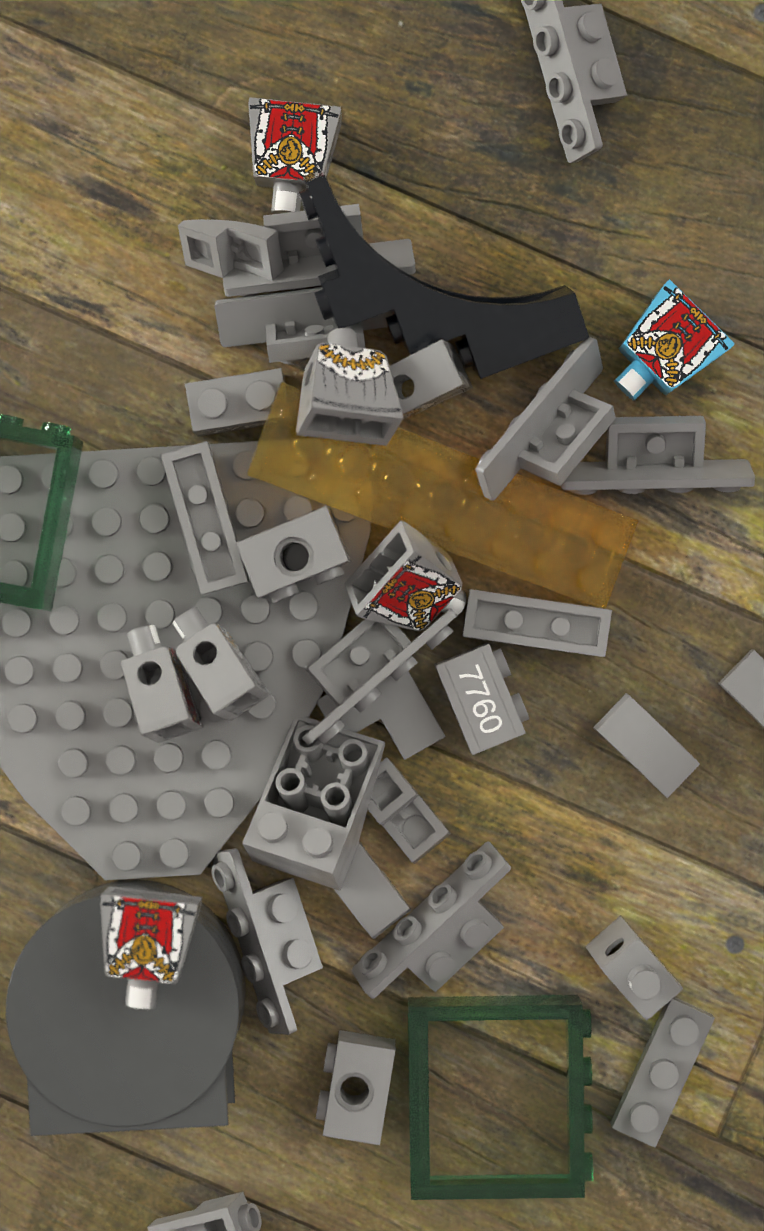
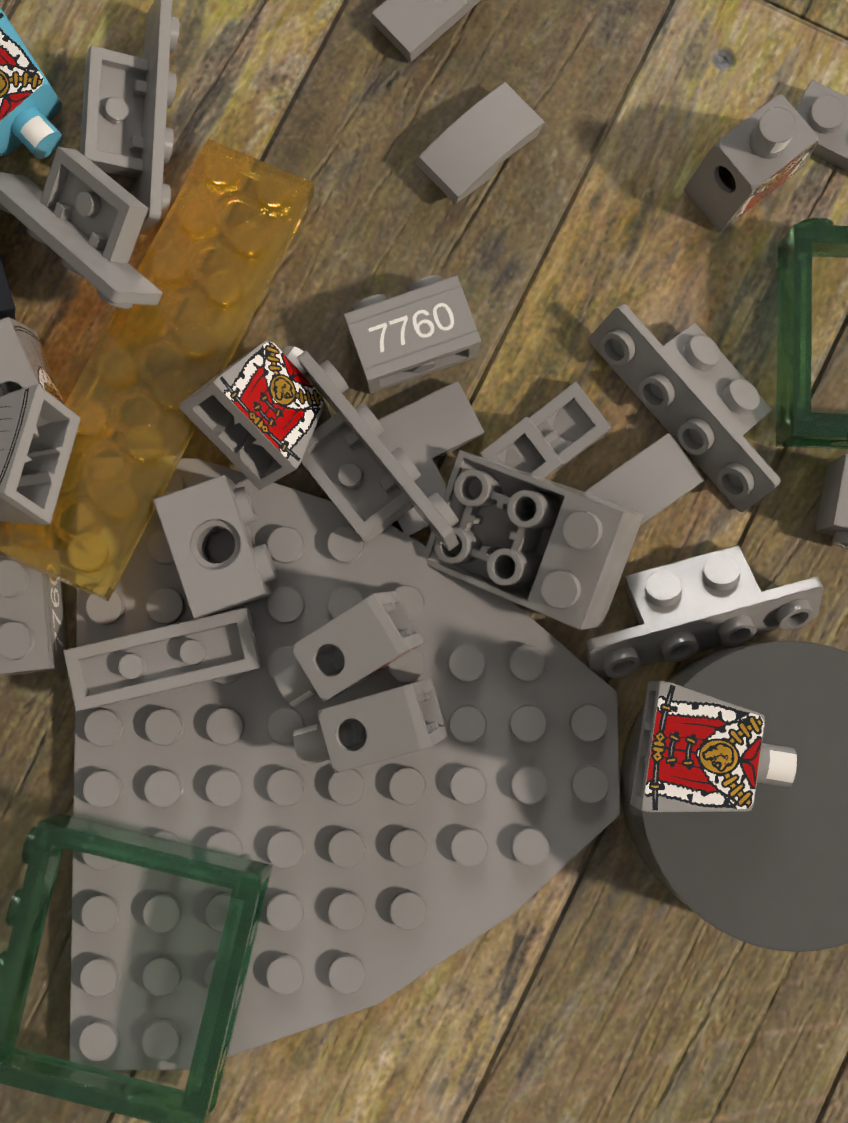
camera: 100 degrees left, 5 degrees down
(537, 623) = (324, 264): light grey plate -> none

